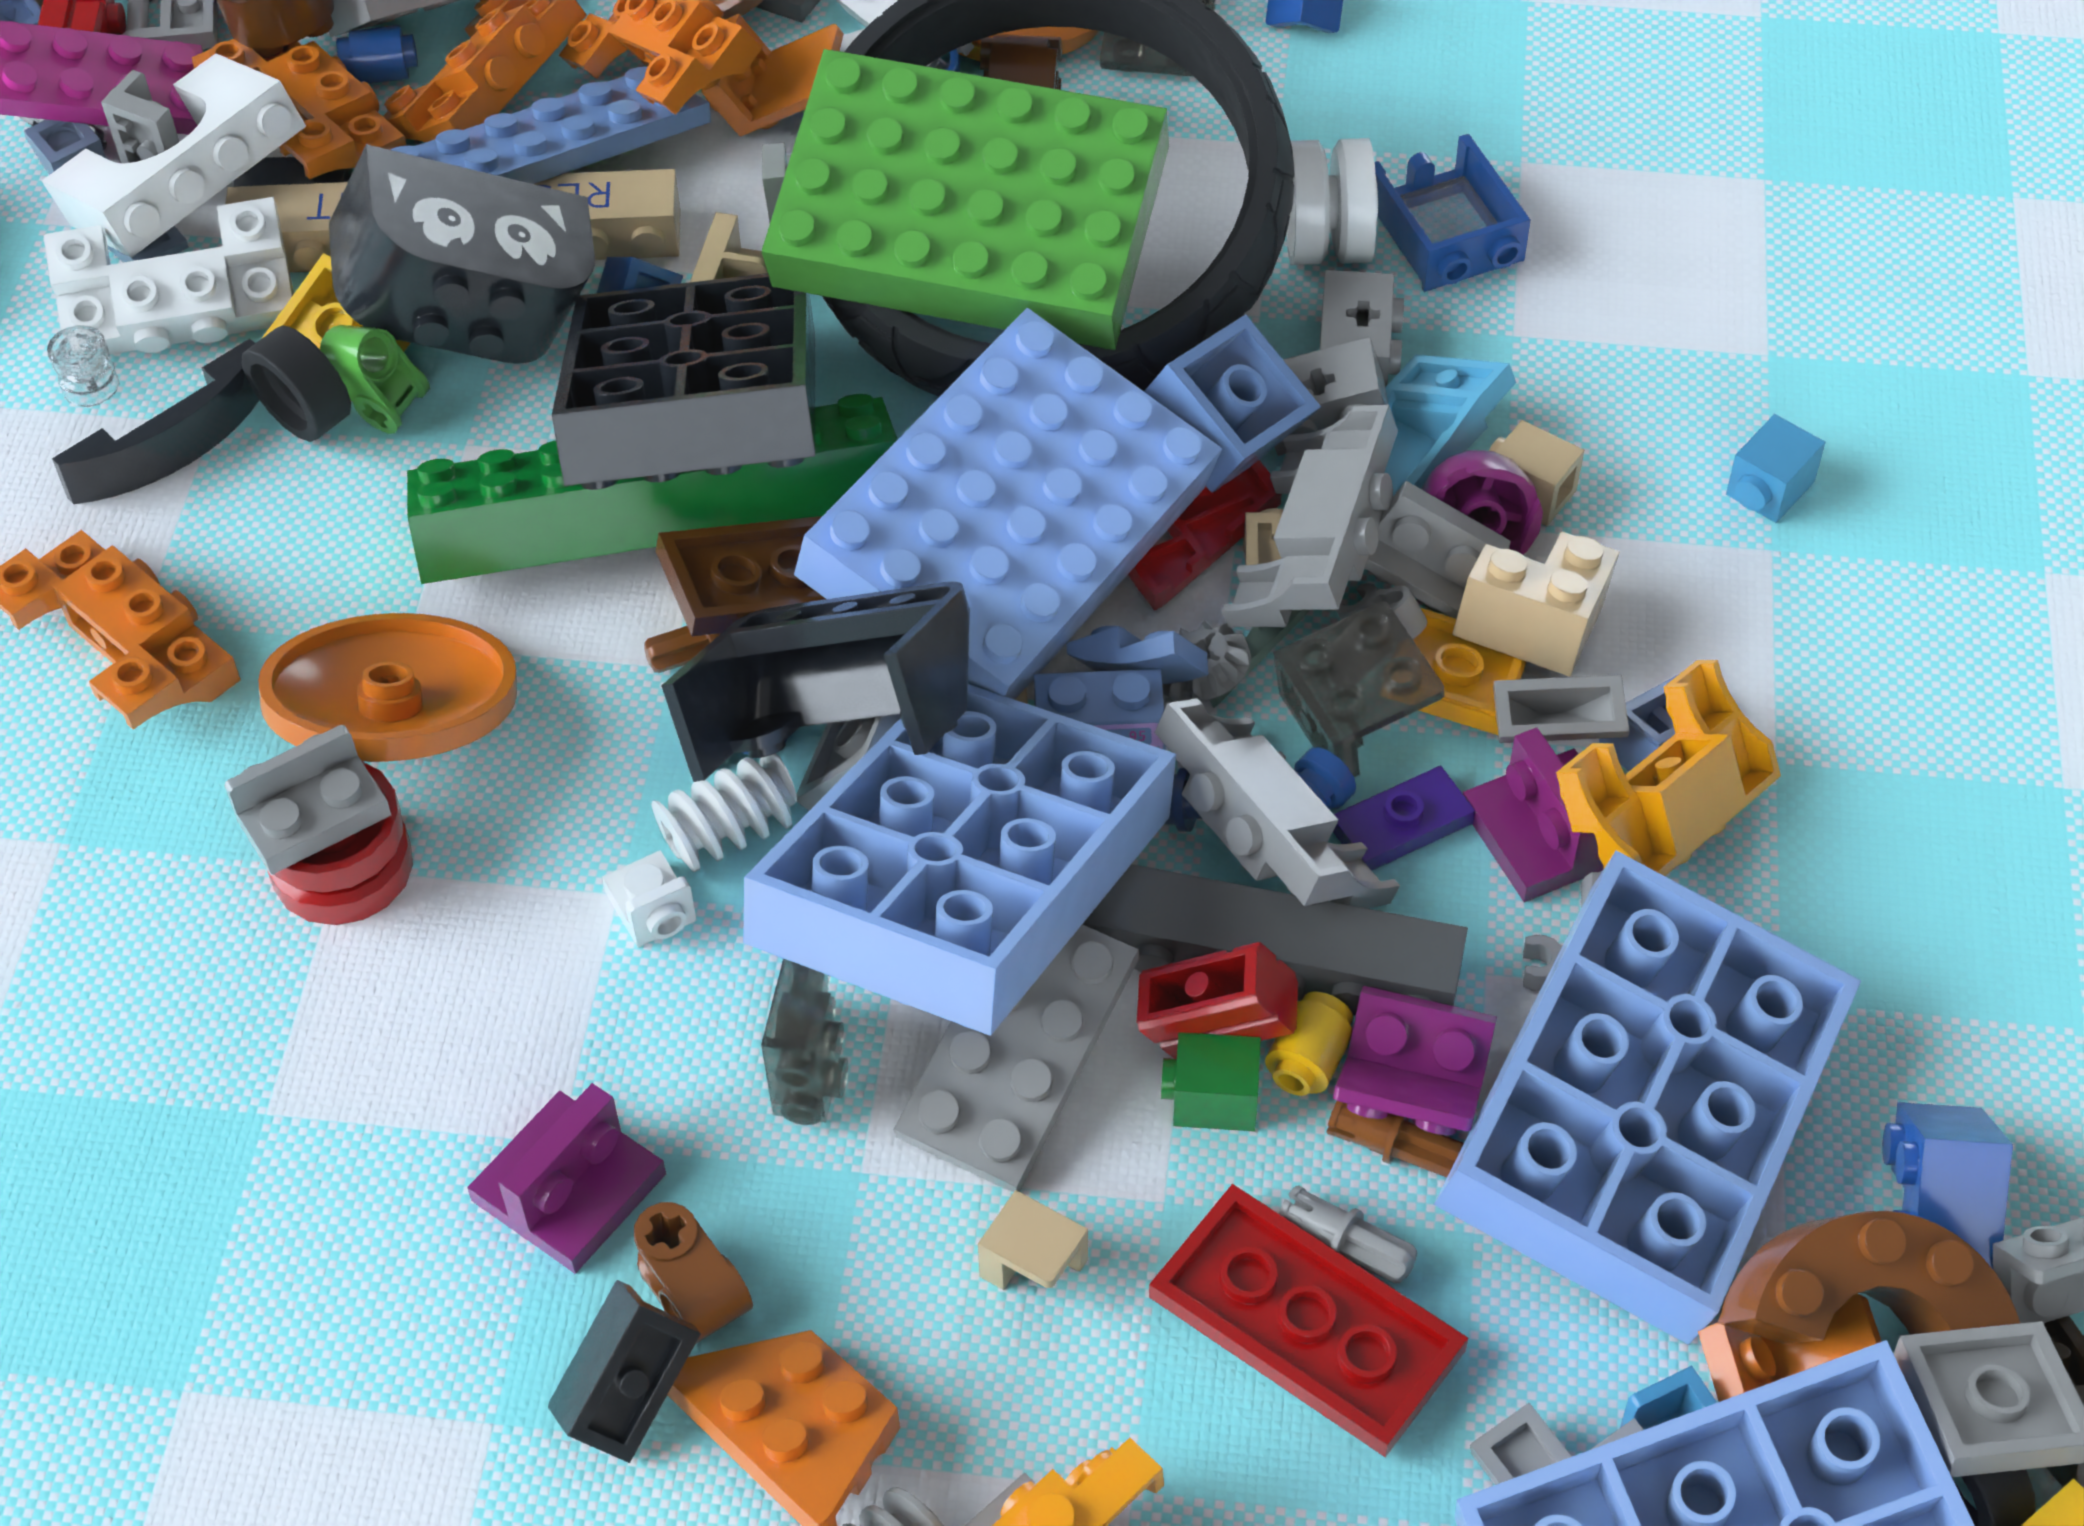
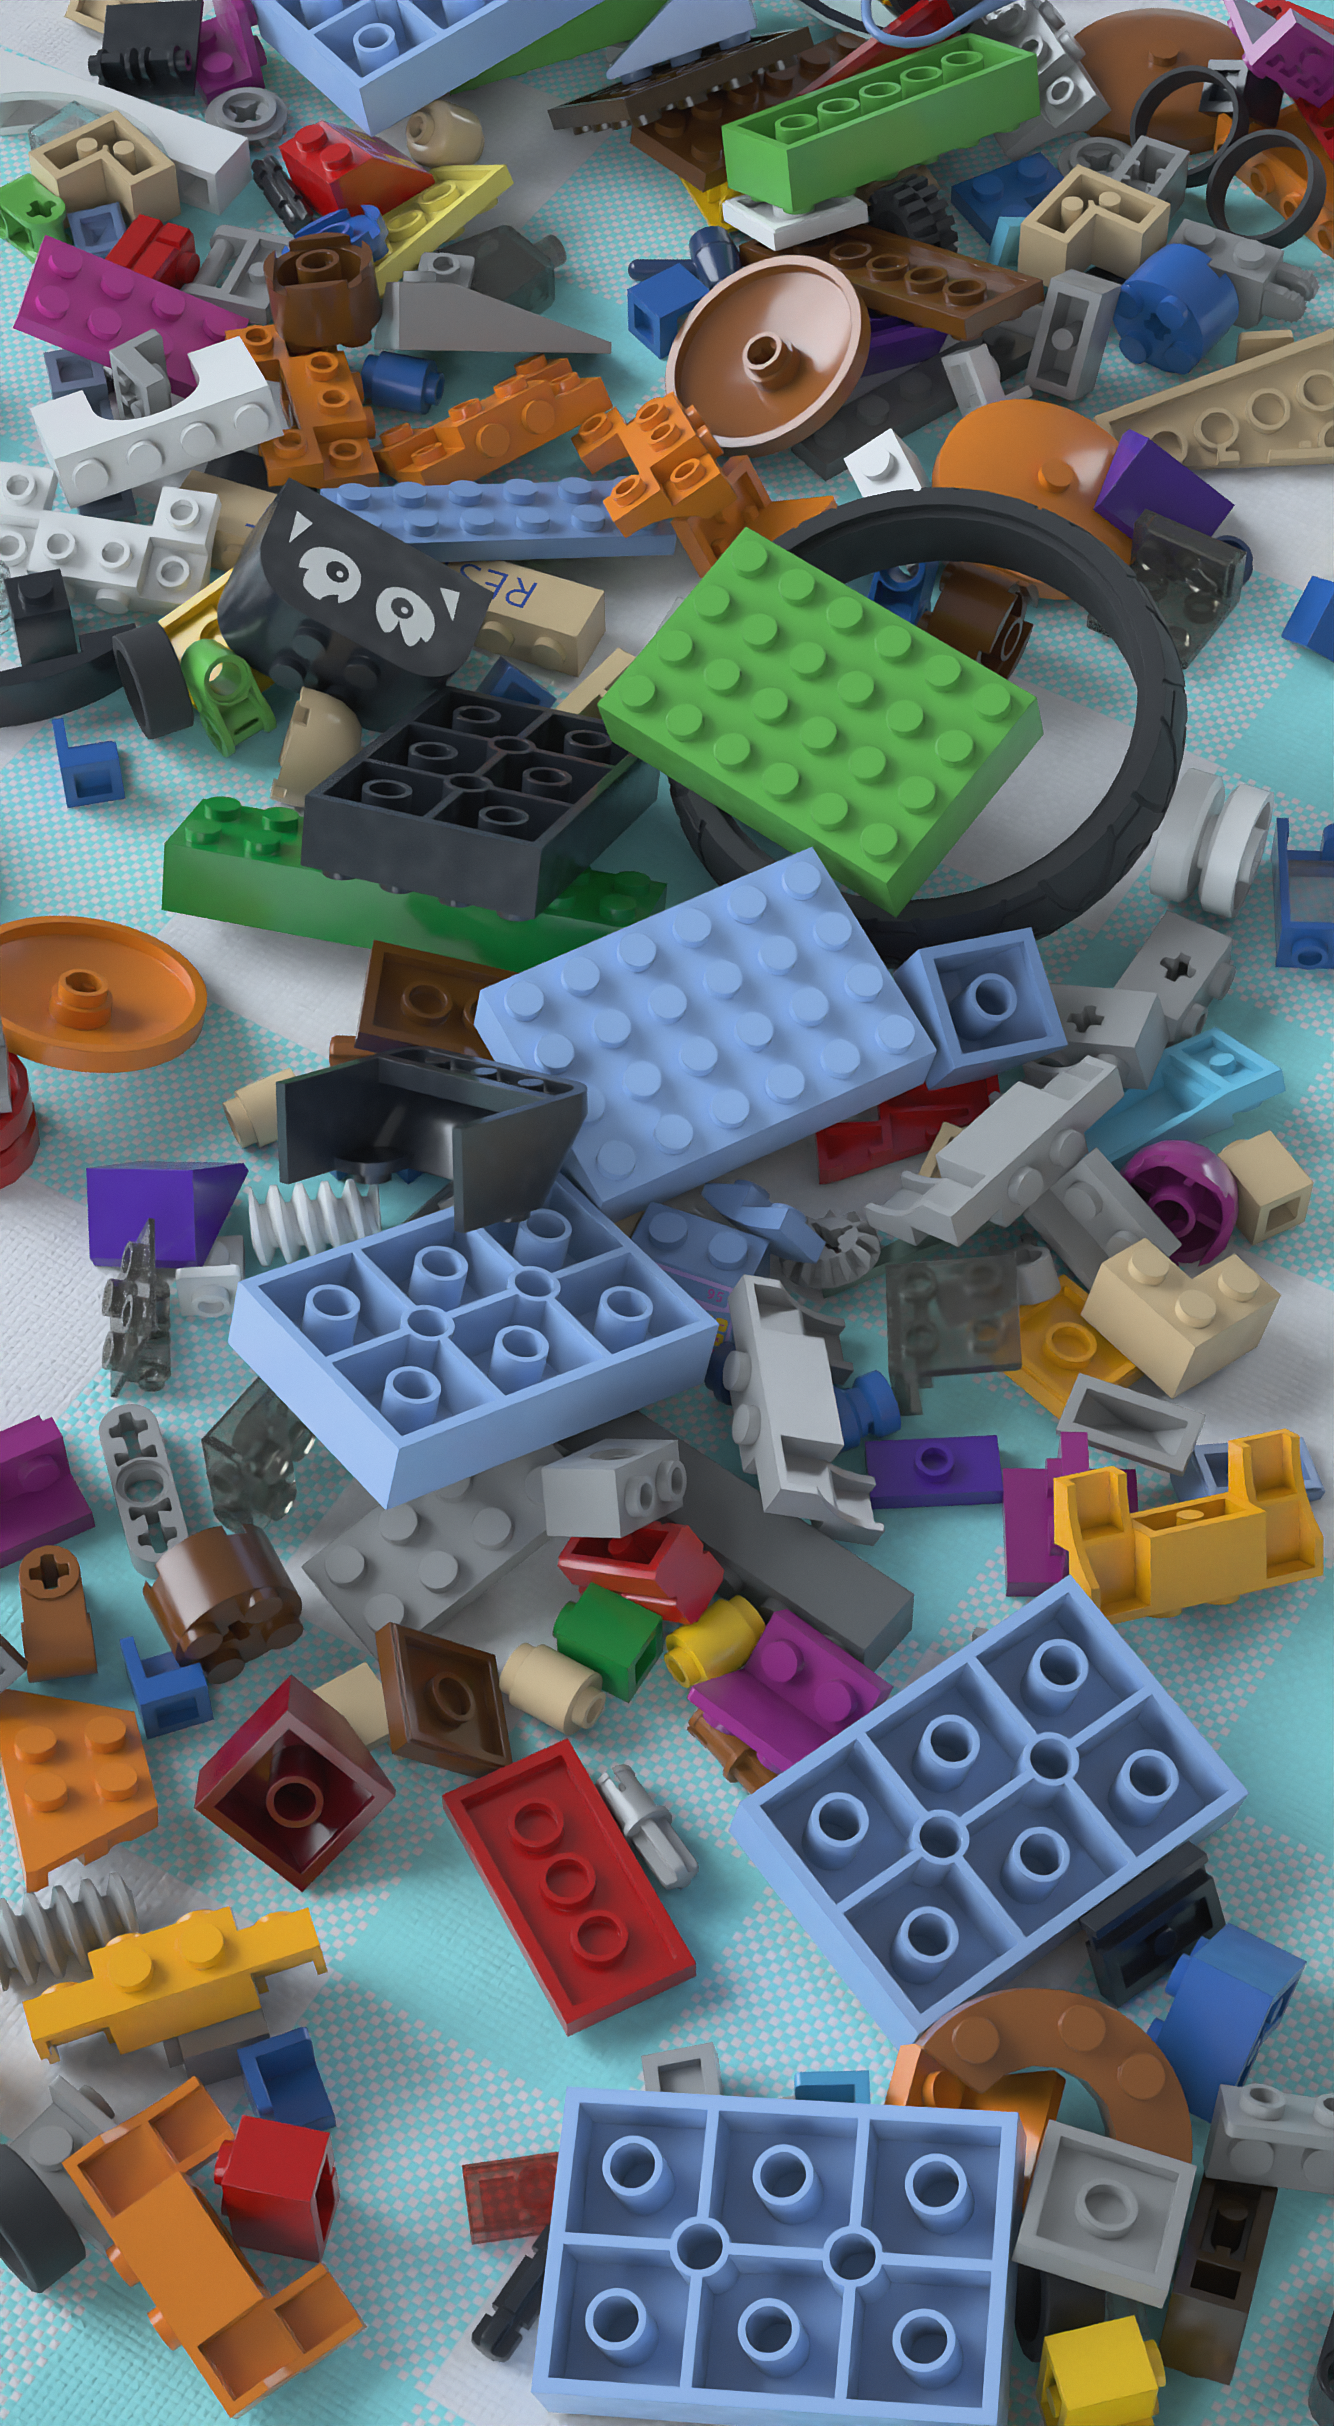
camera: 25 degrees right, 0 degrees up
(149, 366) = (40, 616): none -> black brick
(270, 488) = (88, 771): none -> blue panel
(486, 394) = (316, 744): none -> tan cylinder
(573, 858) = (182, 1197): none -> dark purple slope
(608, 959) = (139, 1319): none -> clear smoke hinge
(622, 726) = (254, 1111): none -> tan brick
(706, 1148) = (125, 1472): none -> light grey beam
(828, 1294) = (164, 1692): none -> blue panel
(849, 1189) = (224, 1601): none -> reddish brown brick
(1014, 1331) = (293, 1784): none -> dark red slope
(1105, 1198) = (442, 1702): none -> reddish brown plate
(1170, 935) = (613, 1487): none -> light grey brick
(1189, 1144) = (553, 1688): none -> tan brick
(1837, 1131) = (1152, 1923): none -> black plate

